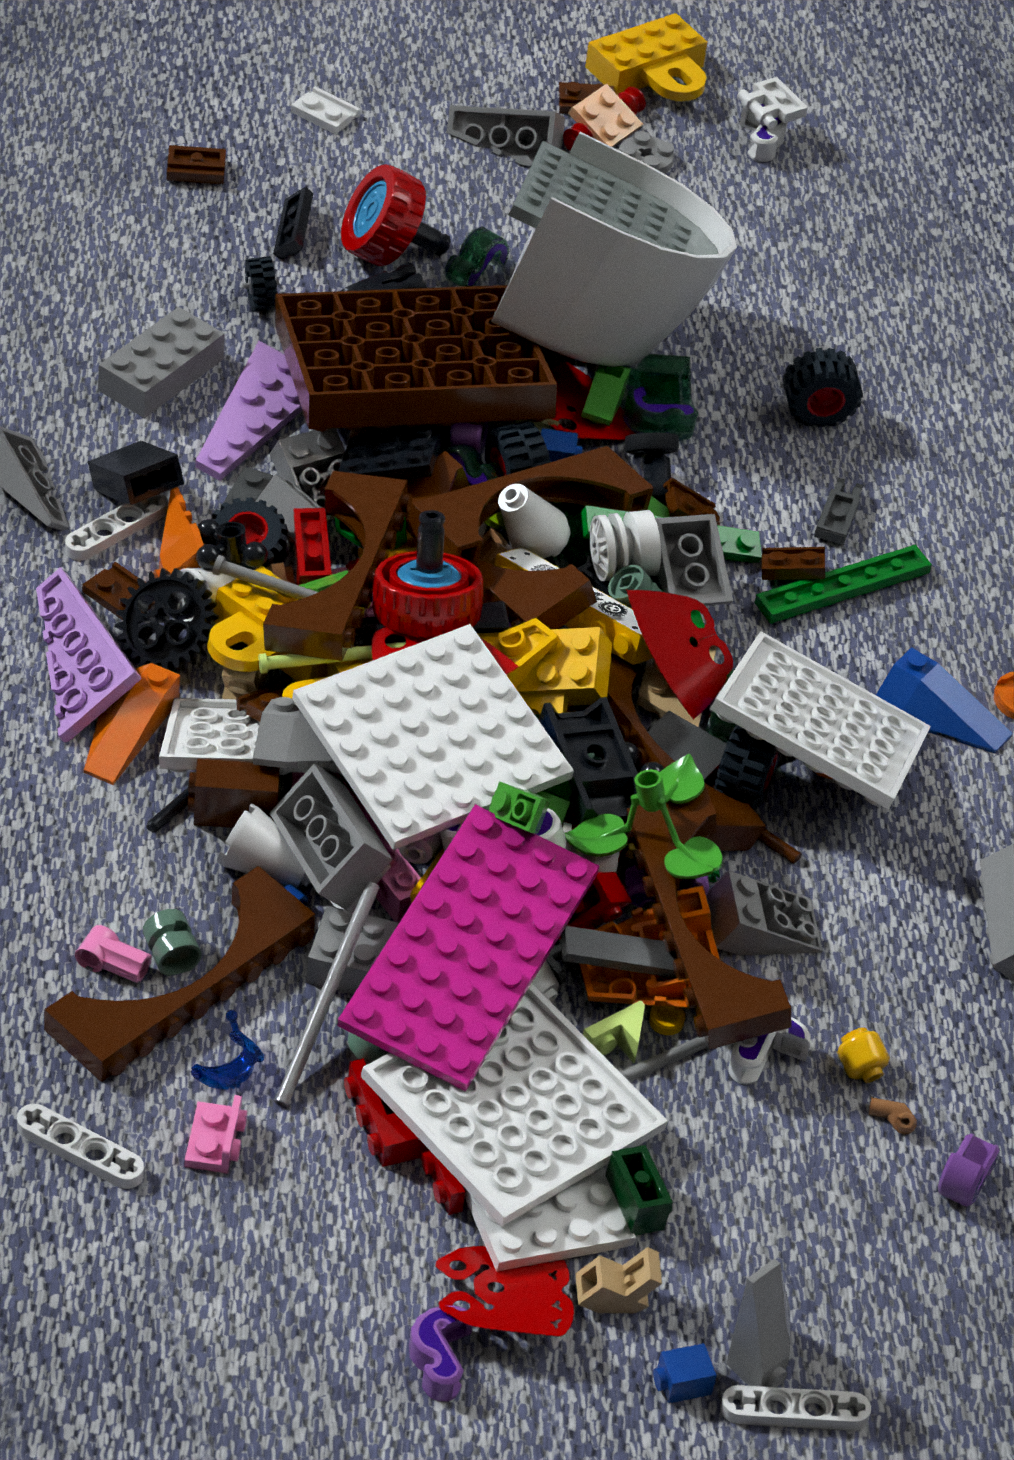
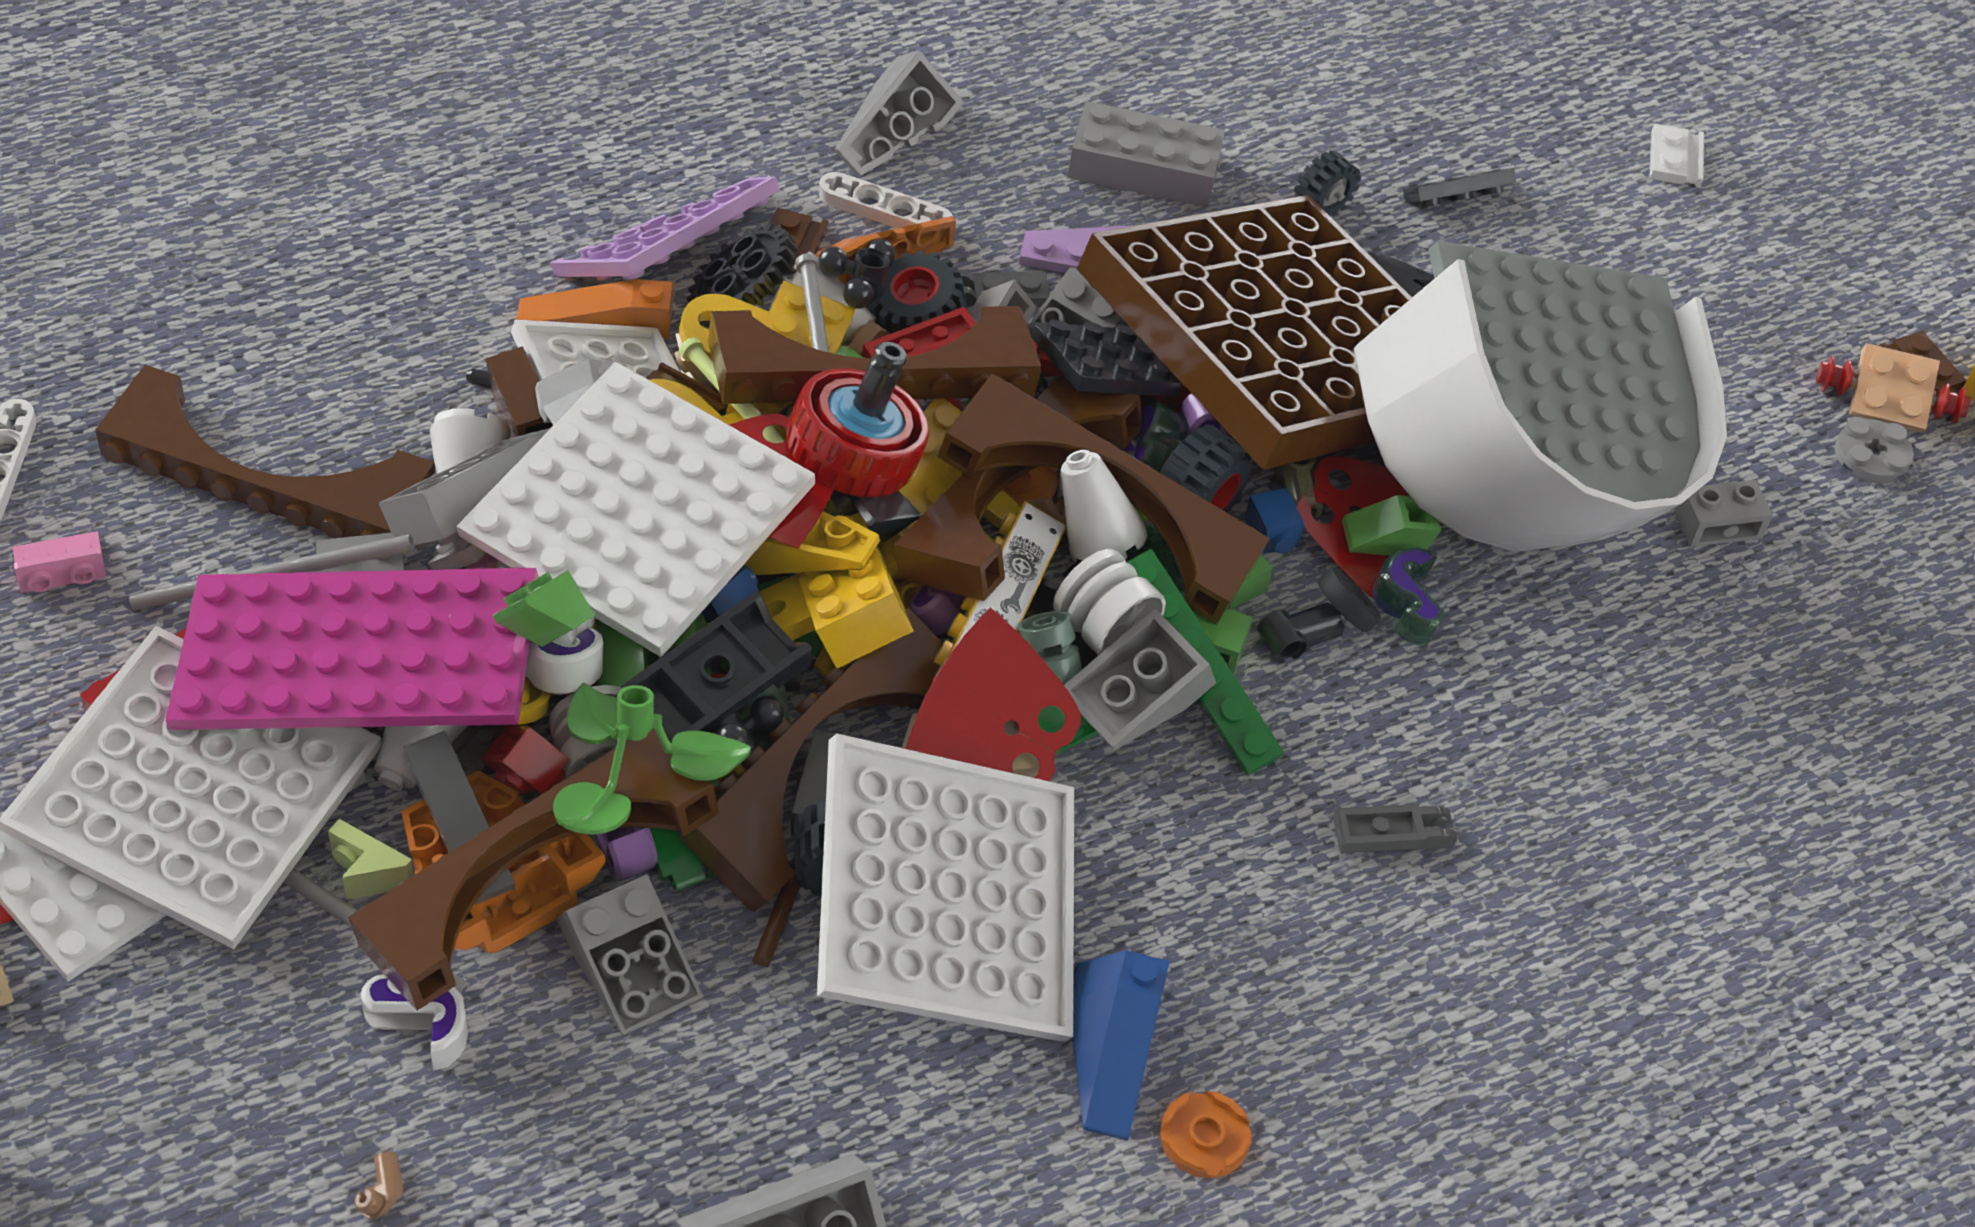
camera: 65 degrees right, 5 degrees up
(104, 951) = (264, 398): bright pink piece -> none
(136, 472) = (951, 183): black brick -> none
(171, 942) = (295, 438): sand green wheel -> none
(196, 164) = (1485, 84): reddish brown plate -> none
(238, 1070) = (172, 551): clear blue helmet -> none
(387, 218) = (1514, 225): red wheel -> none
(506, 130) = (1787, 320): light grey wedge -> none
(639, 1190) = (121, 948): dark green brick -> none
(663, 378) = (1465, 563): clear green torso -> none
(687, 502) = (1267, 671): reddish brown plate -> none
(793, 563) = (1255, 804): reddish brown plate -> none
(822, 387) = (1574, 731): black wheel -> none
(843, 584) = (1265, 870): green plate -> none
(863, 1055) = (454, 1121): yellow head -> none

